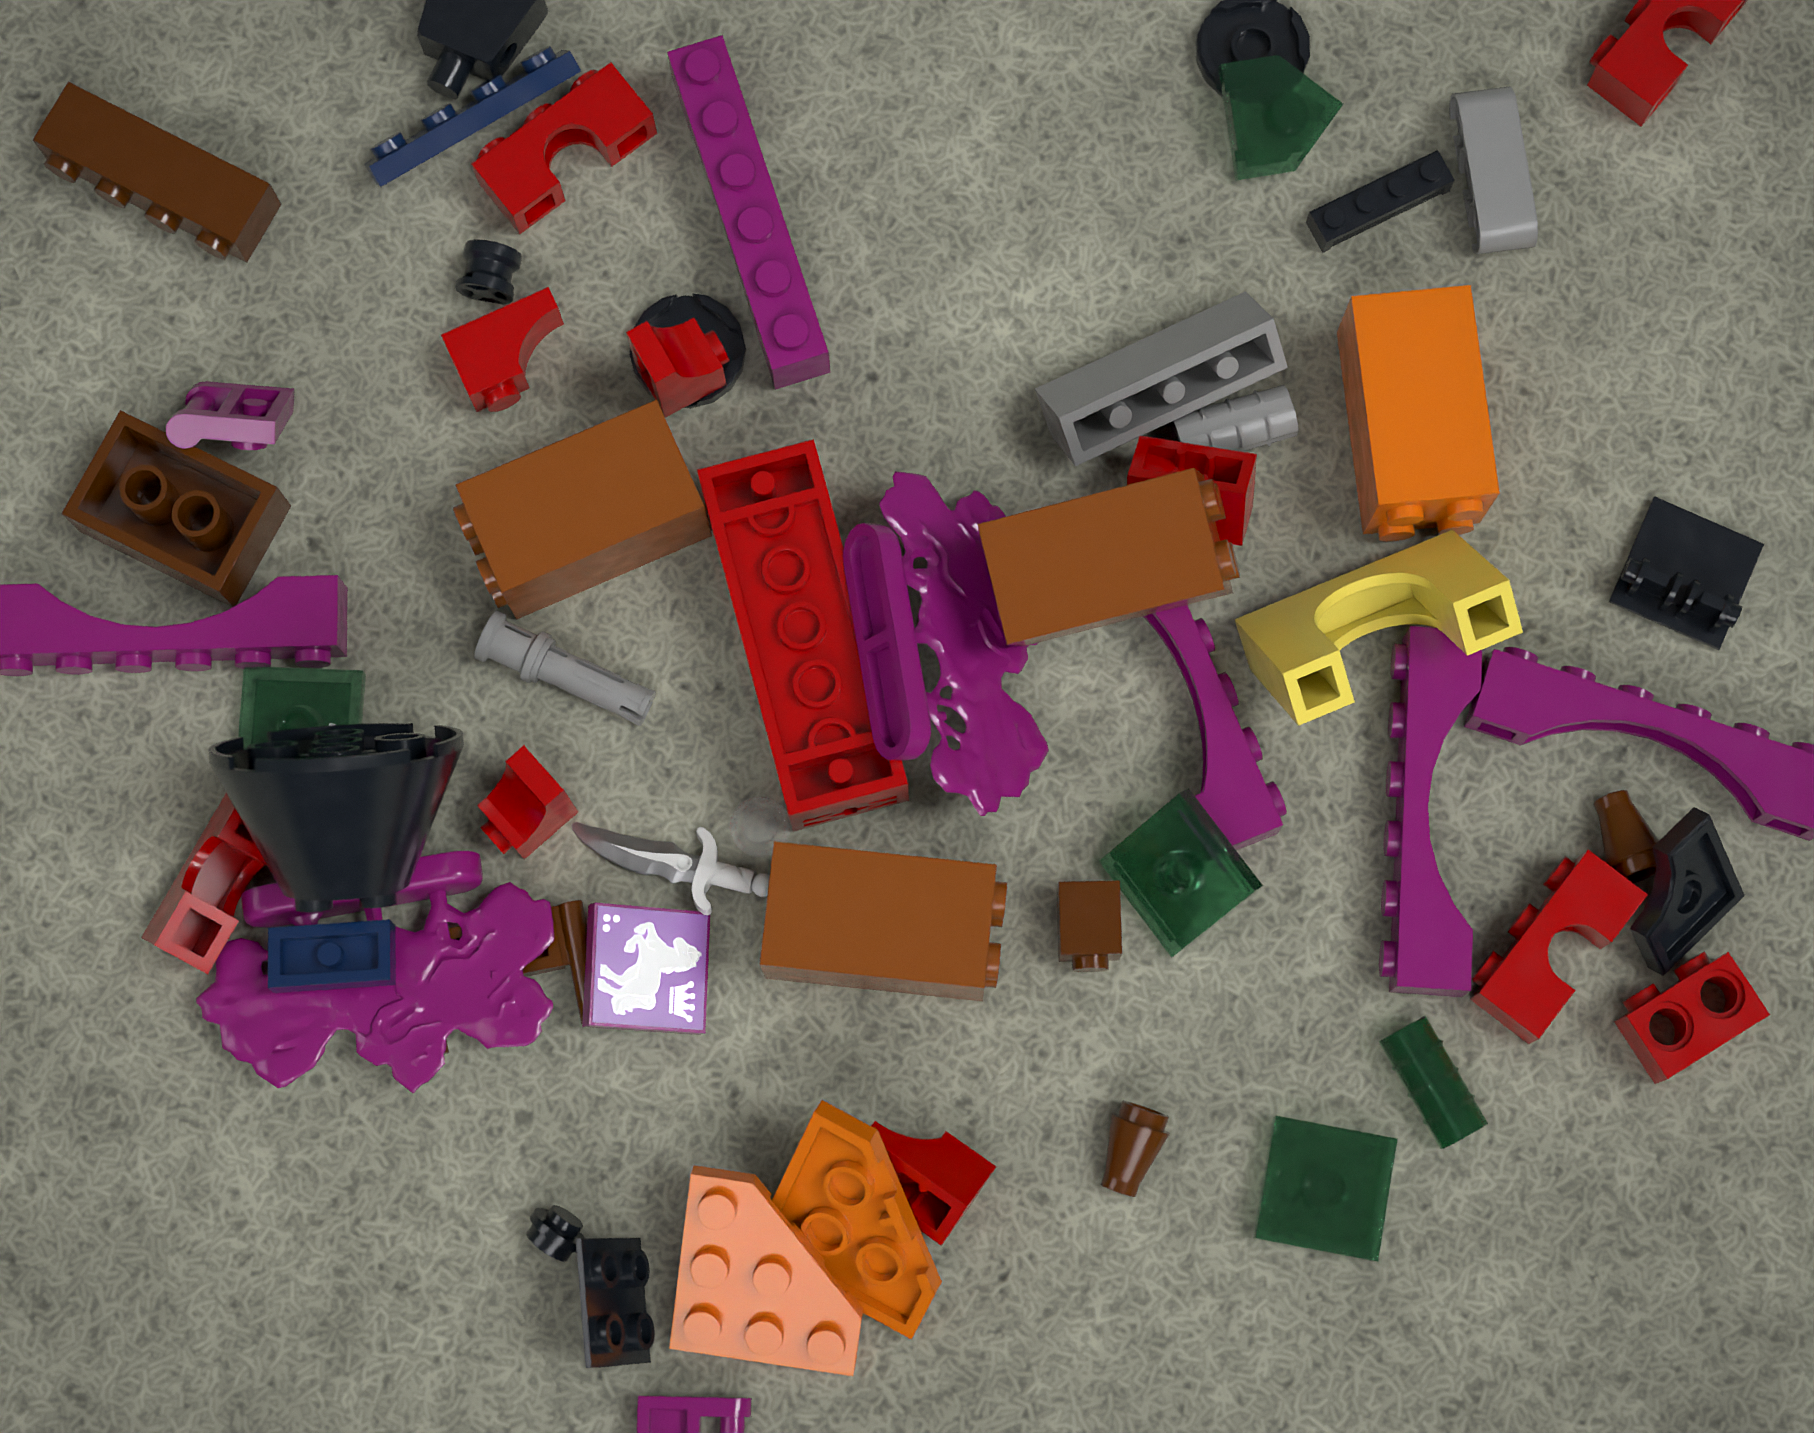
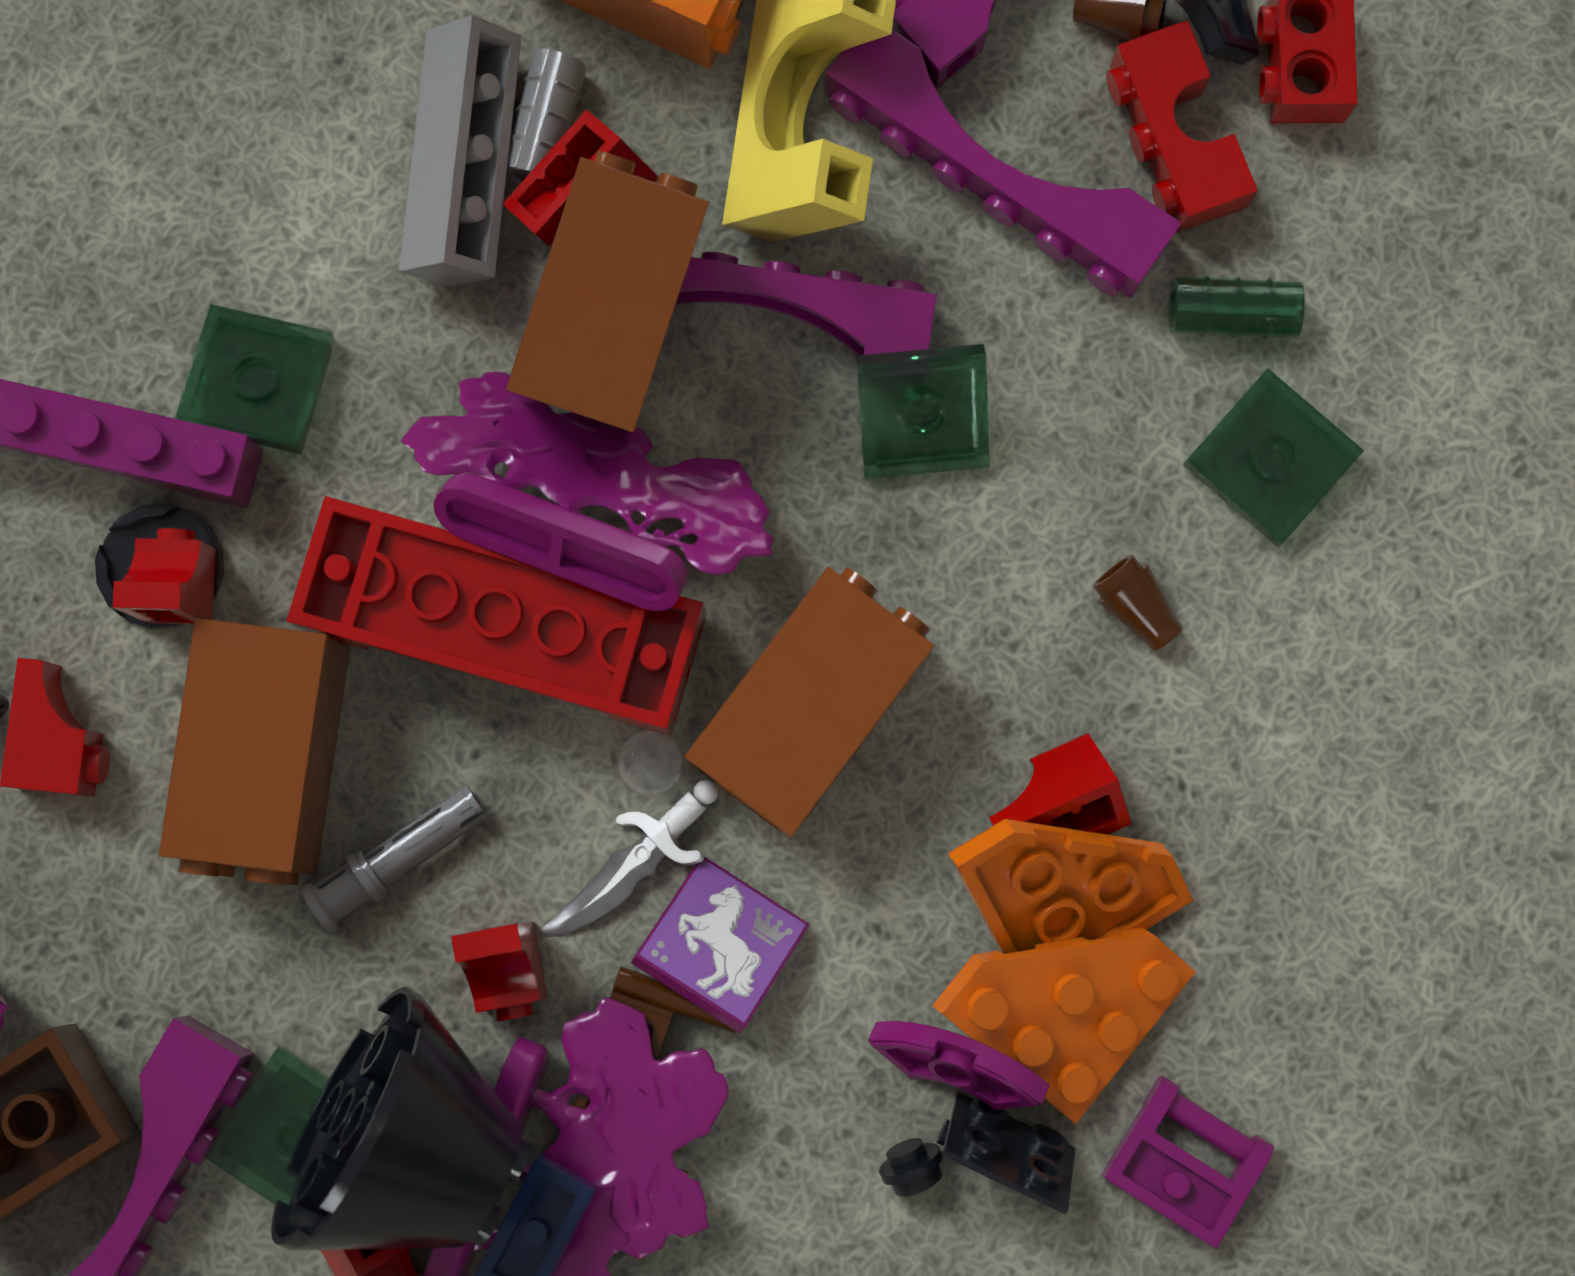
camera: 60 degrees left, 5 degrees up
(661, 1217) = (958, 1062): none -> magenta tile
(882, 332) = (256, 377): none -> clear green plate
(1089, 924) = (919, 520): reddish brown brick -> none

